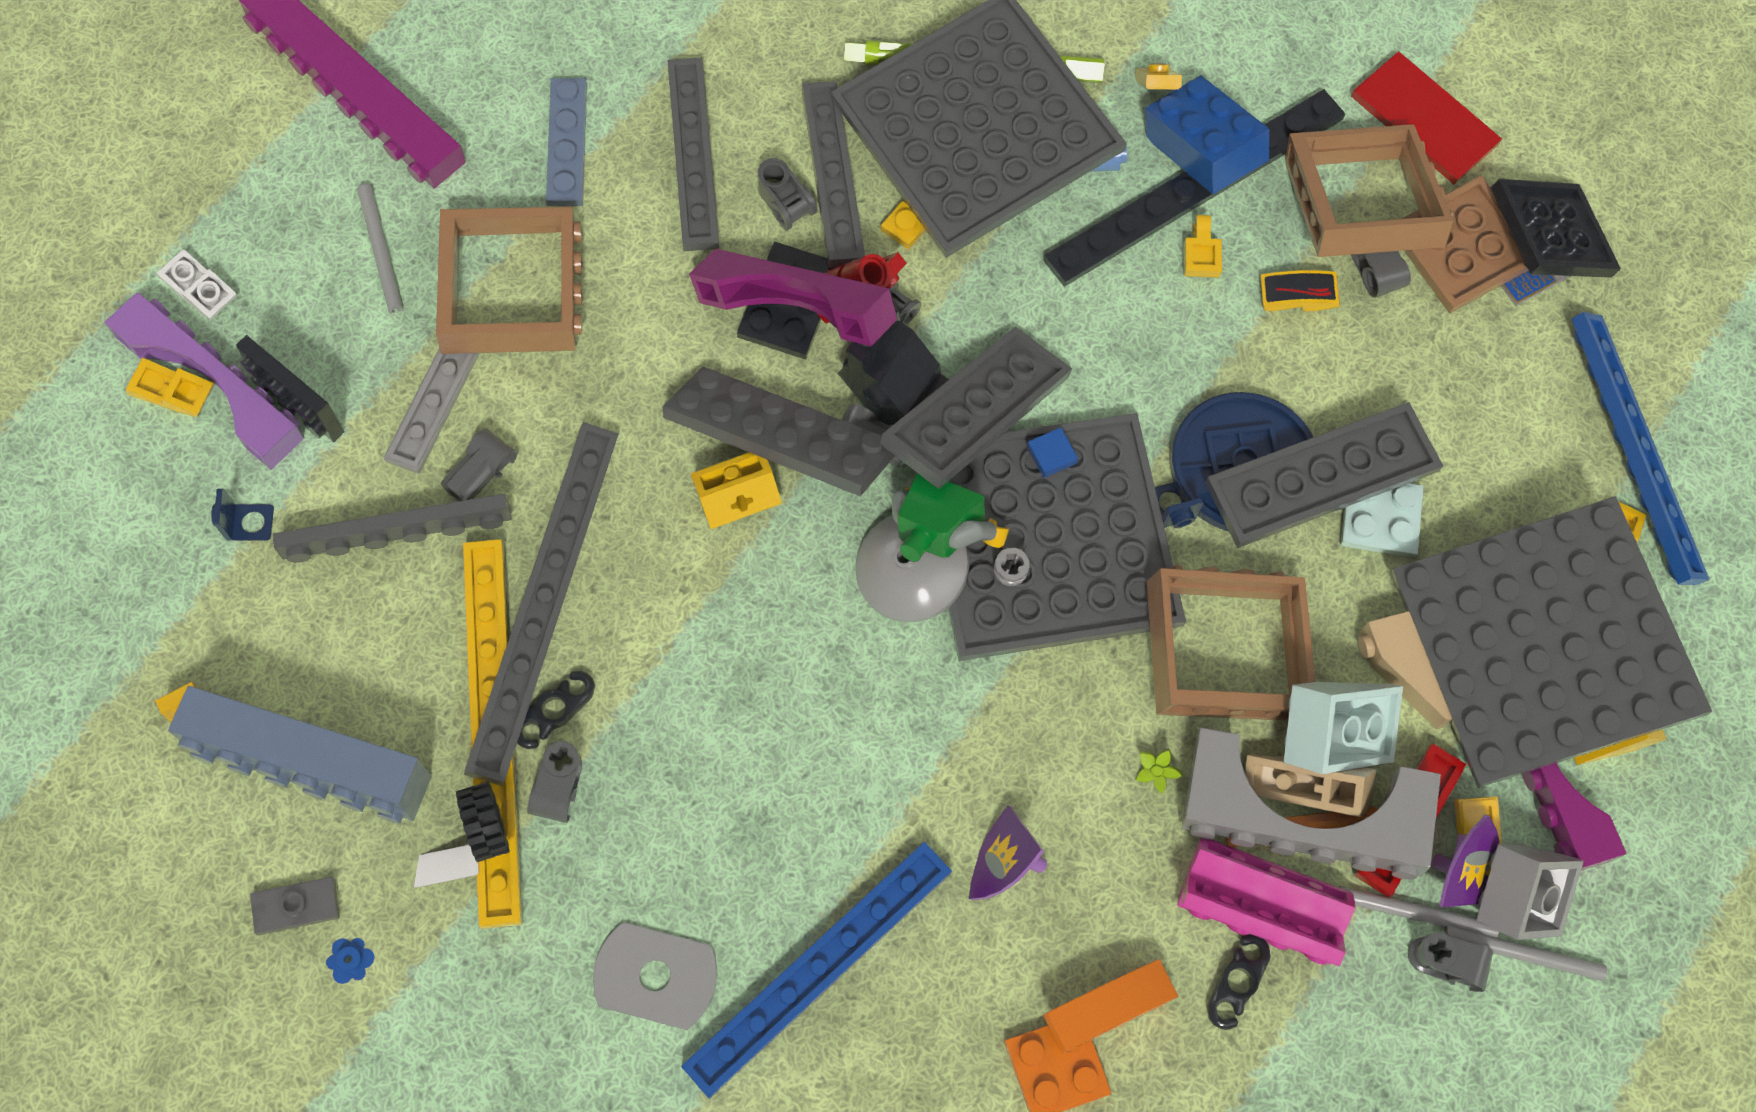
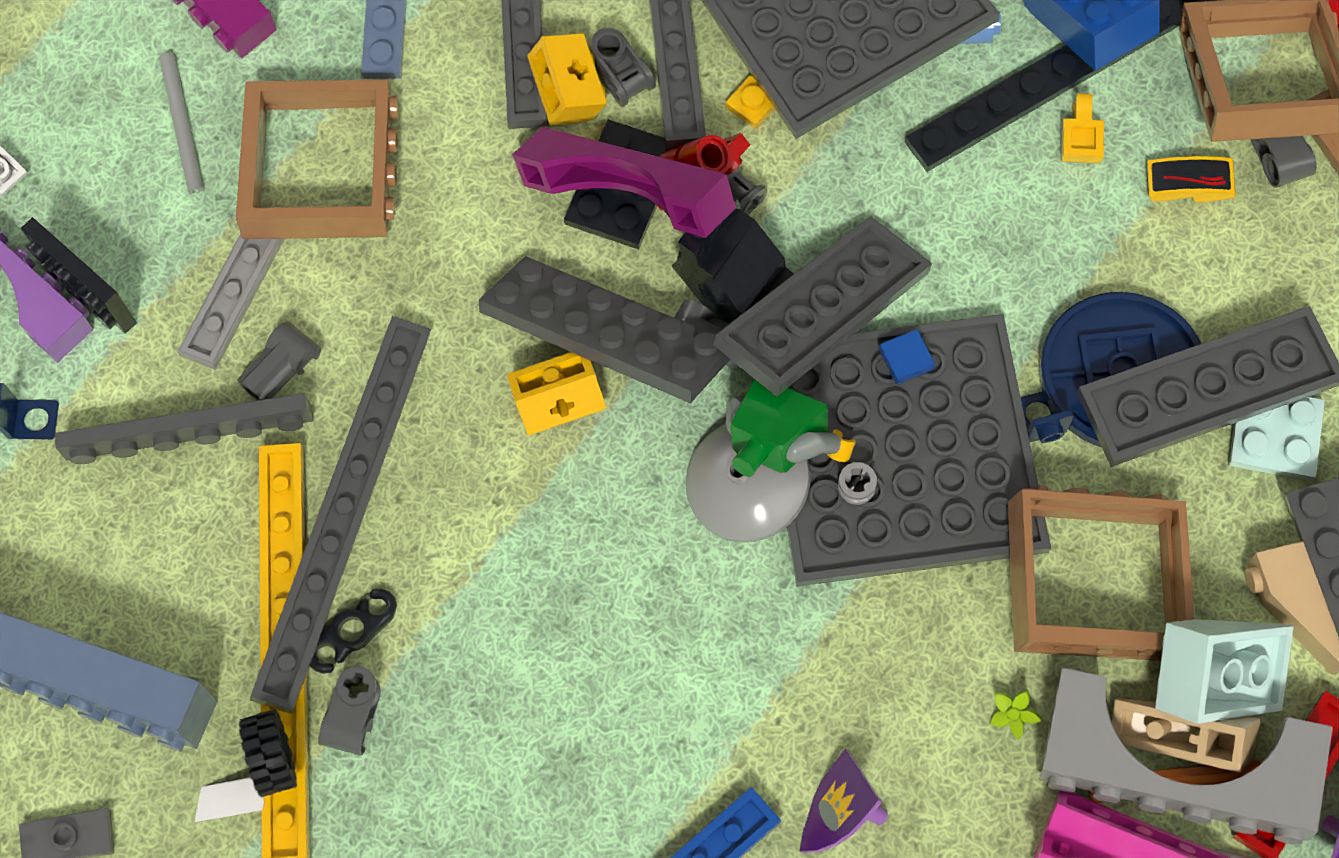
camera: 10 degrees right, 0 degrees up
(736, 205) = (567, 79): none -> yellow brick

